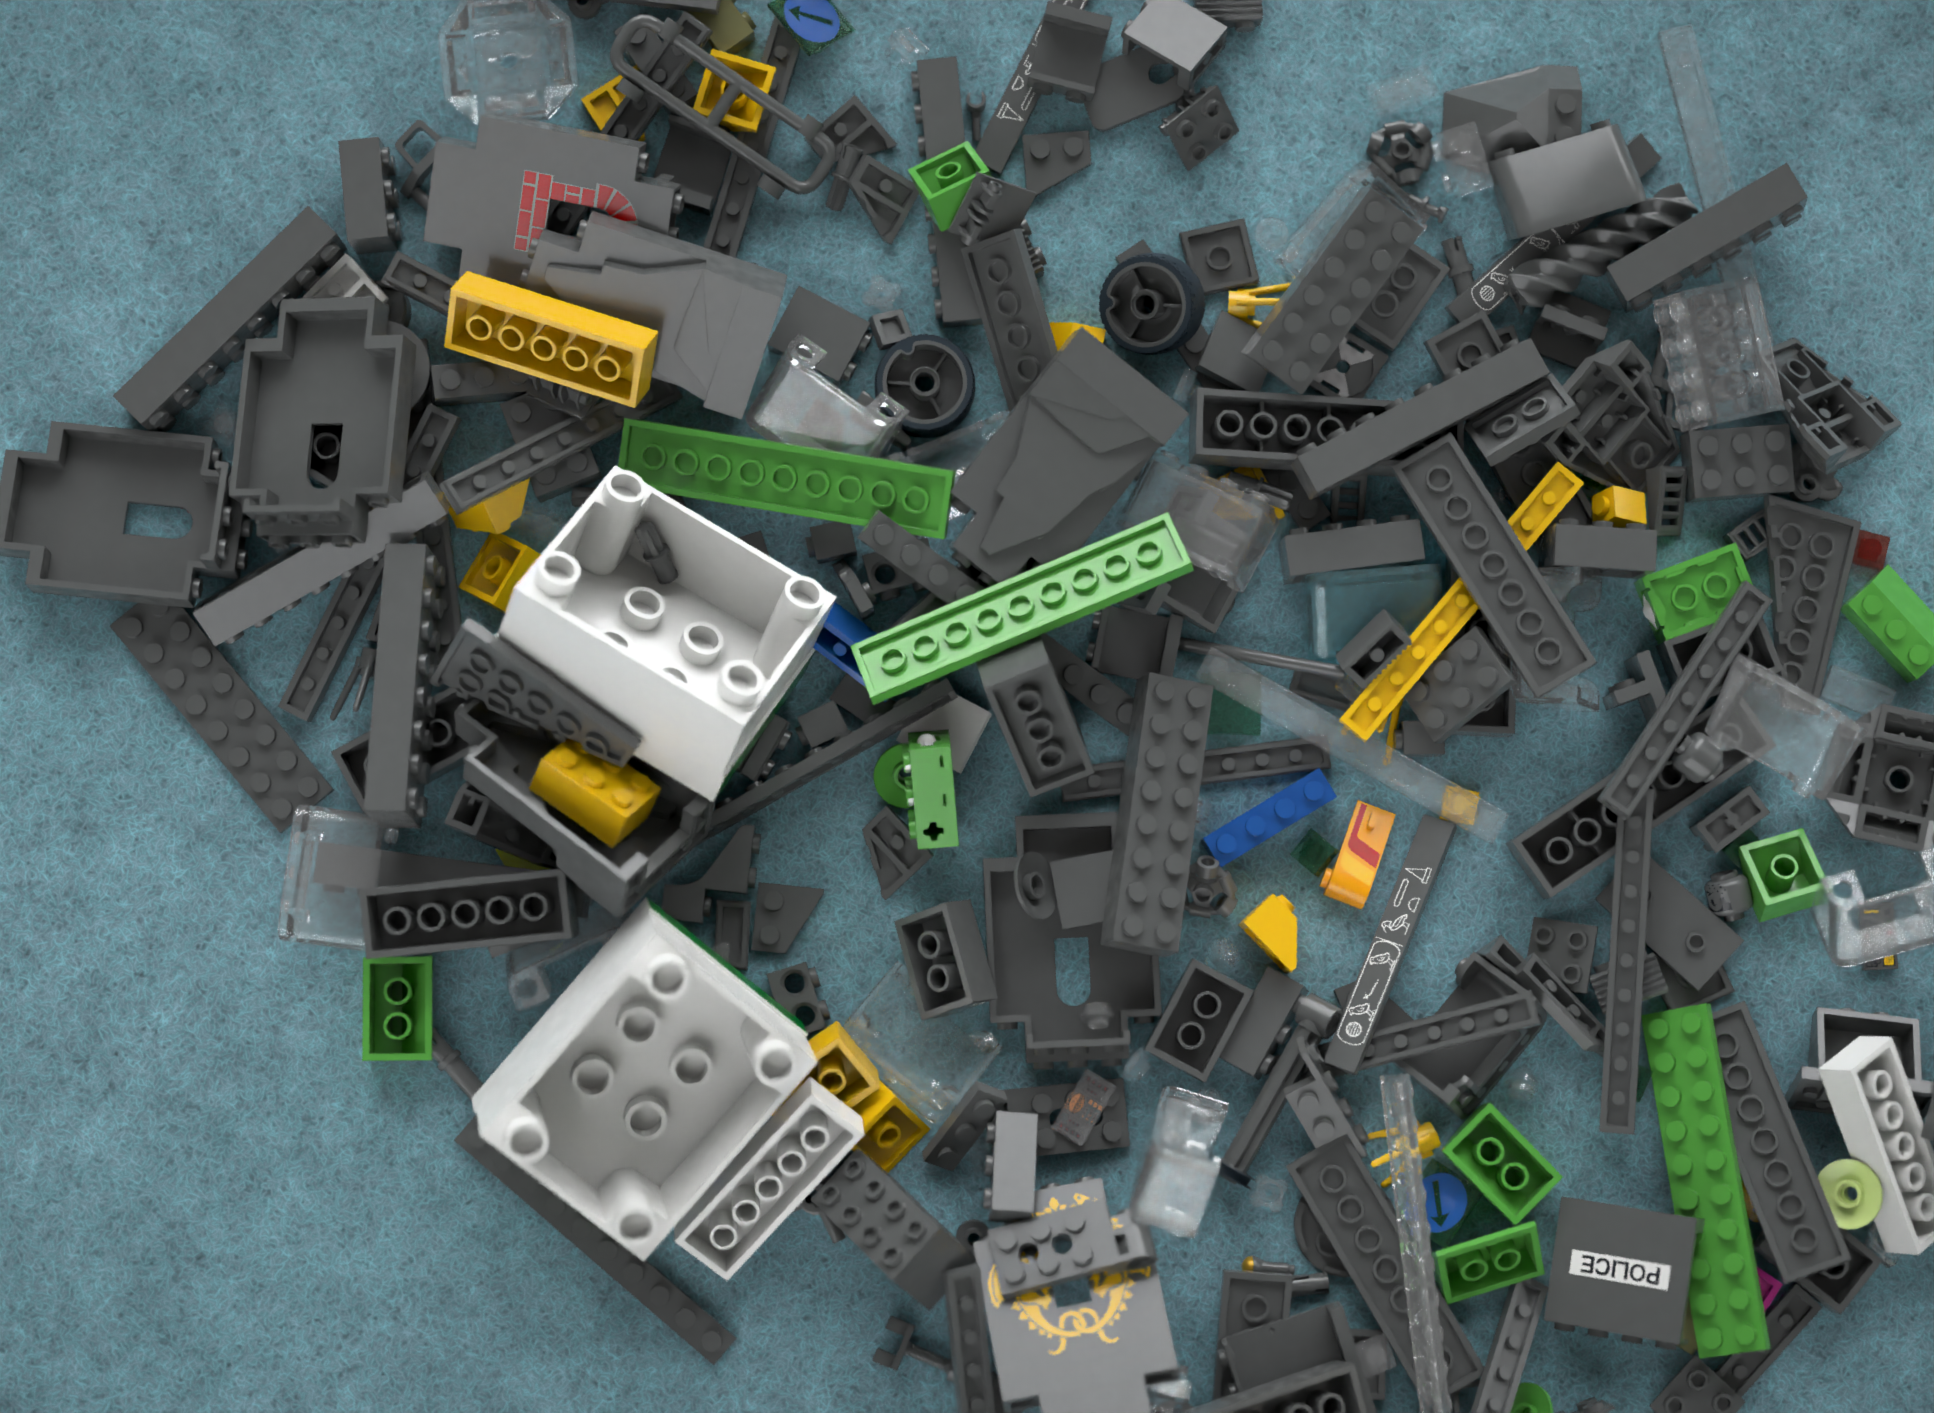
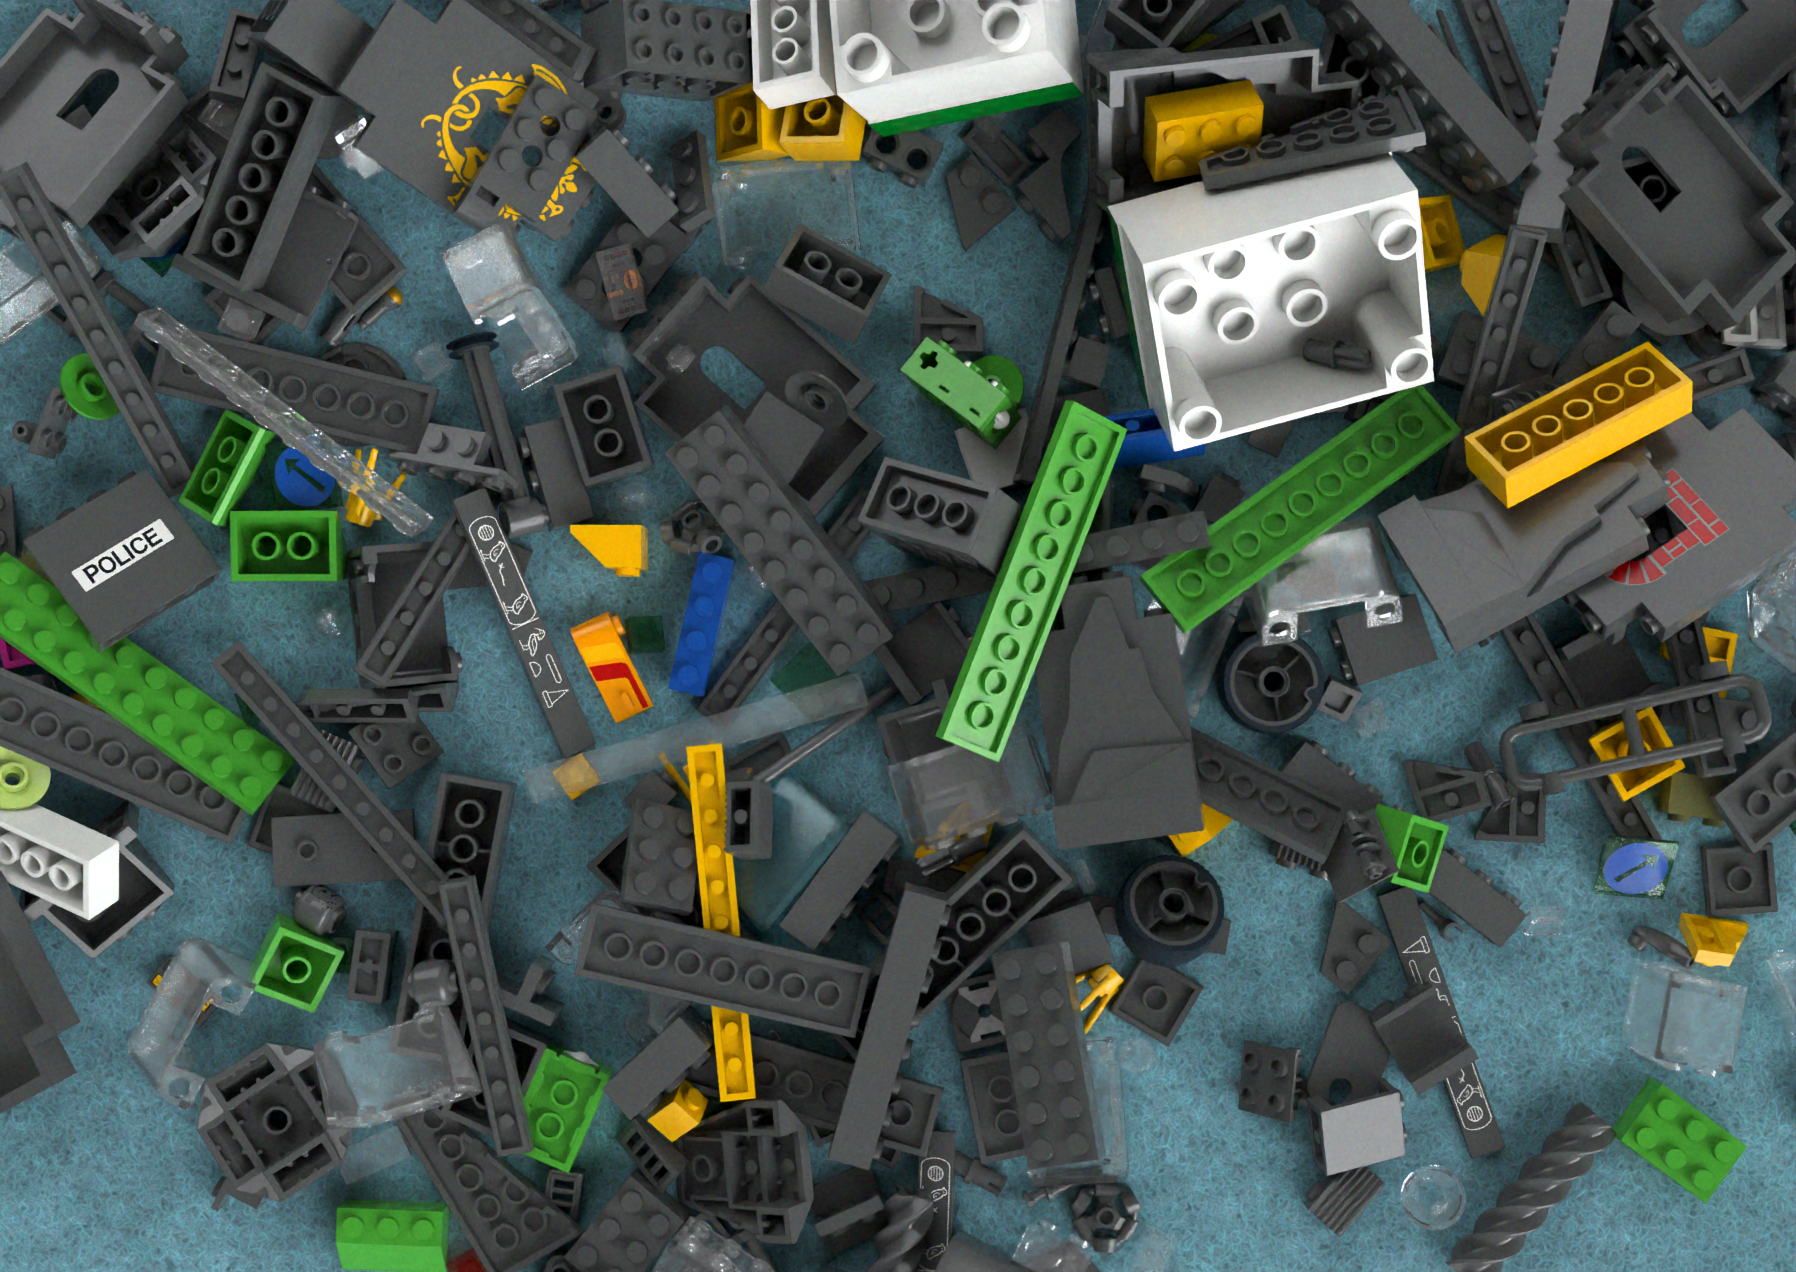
camera: 140 degrees right, 5 degrees up
(1522, 420) = (812, 1101): dark grey plate -> none

